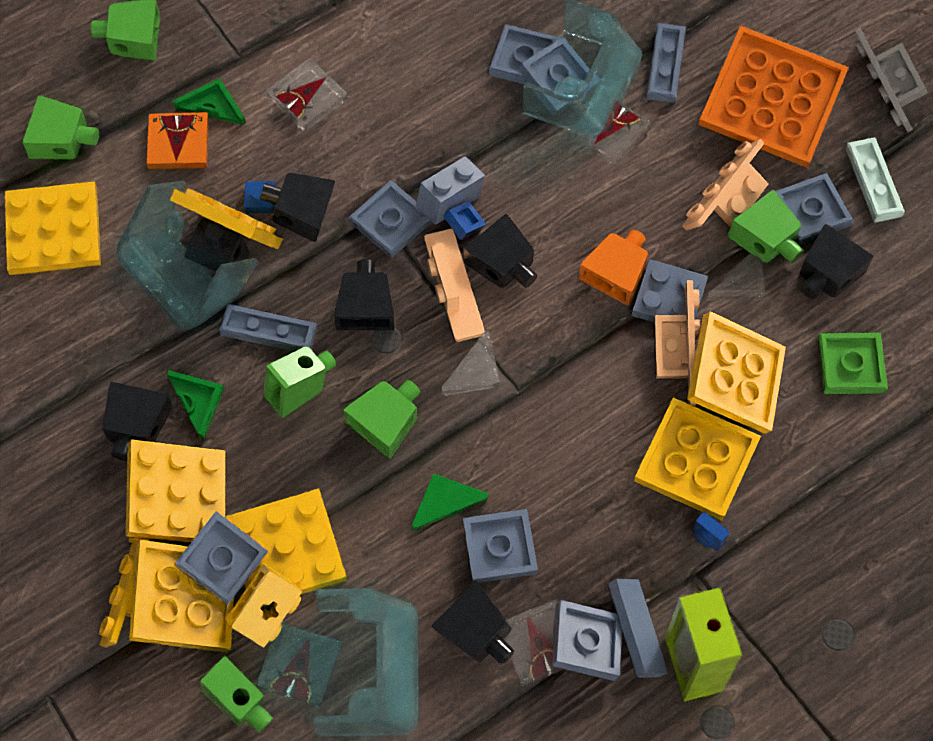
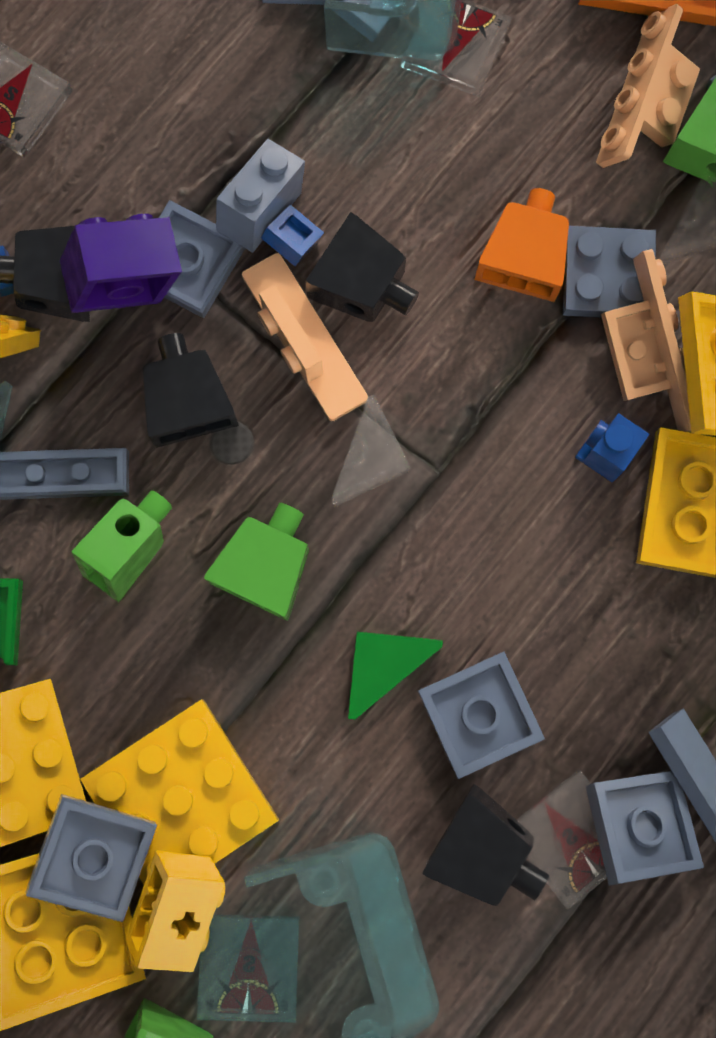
camera: 15 degrees left, 15 degrees up
(347, 206) = (119, 263): none -> dark purple brick
(637, 402) = (612, 447): none -> blue brick

